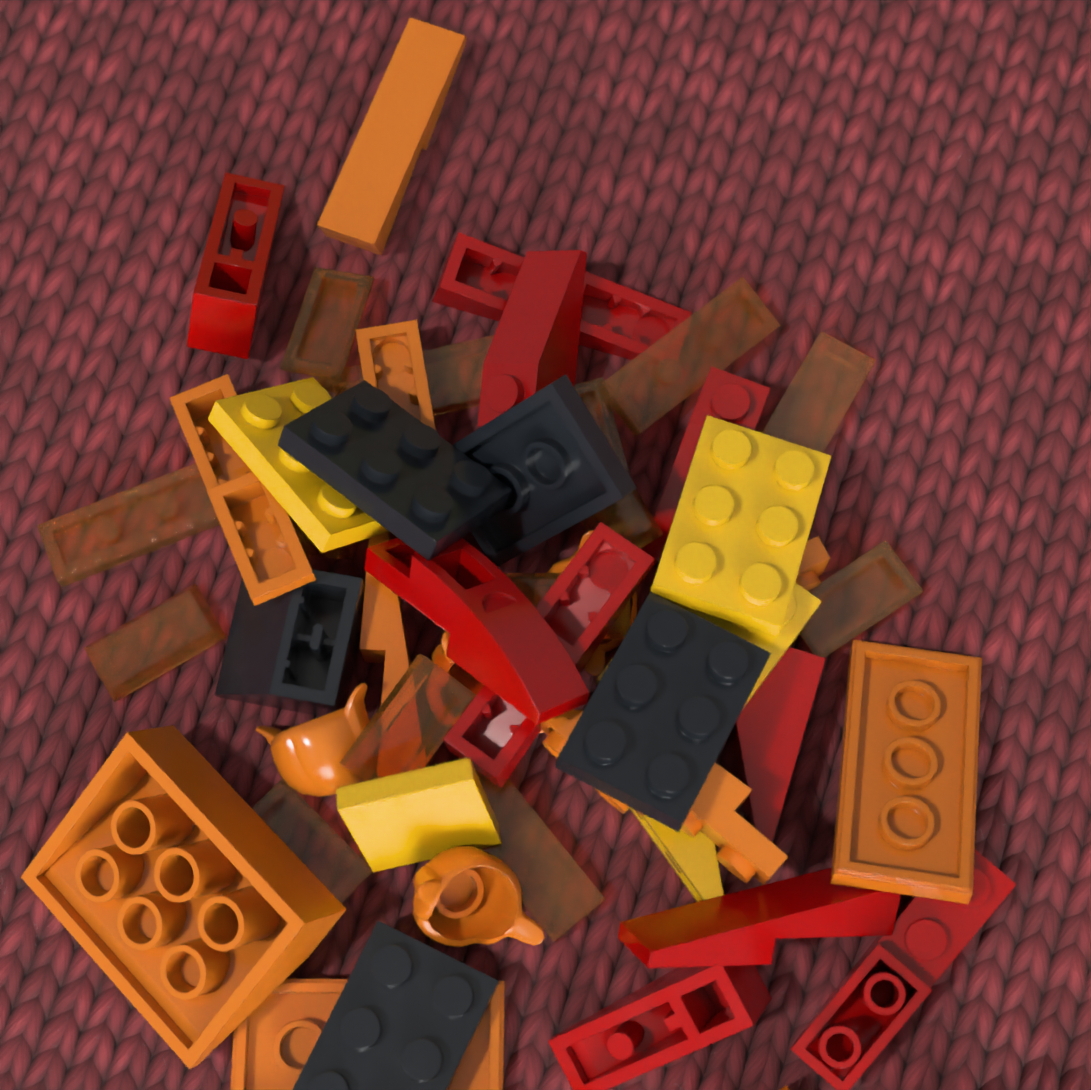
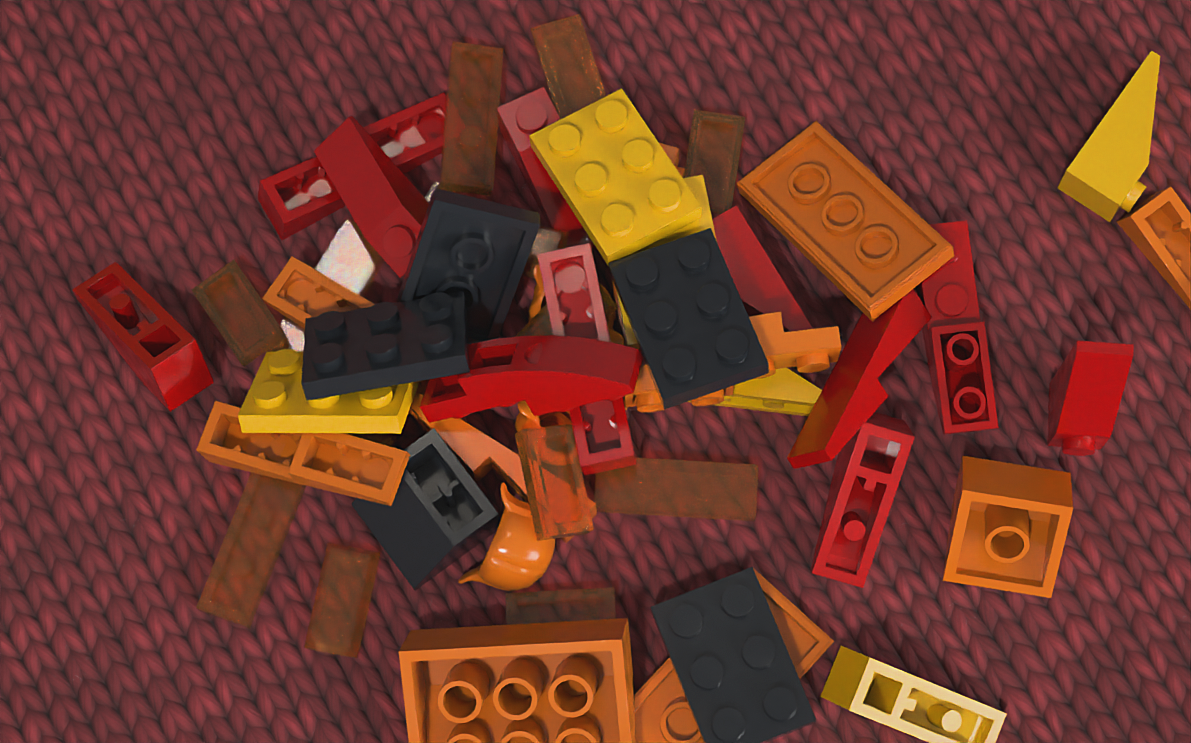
camera: 45 degrees left, 0 degrees up
(392, 136) = (151, 165): orange slope -> none
(418, 814) = (613, 521): yellow tile -> none
(471, 899) = (688, 540): orange hair -> none

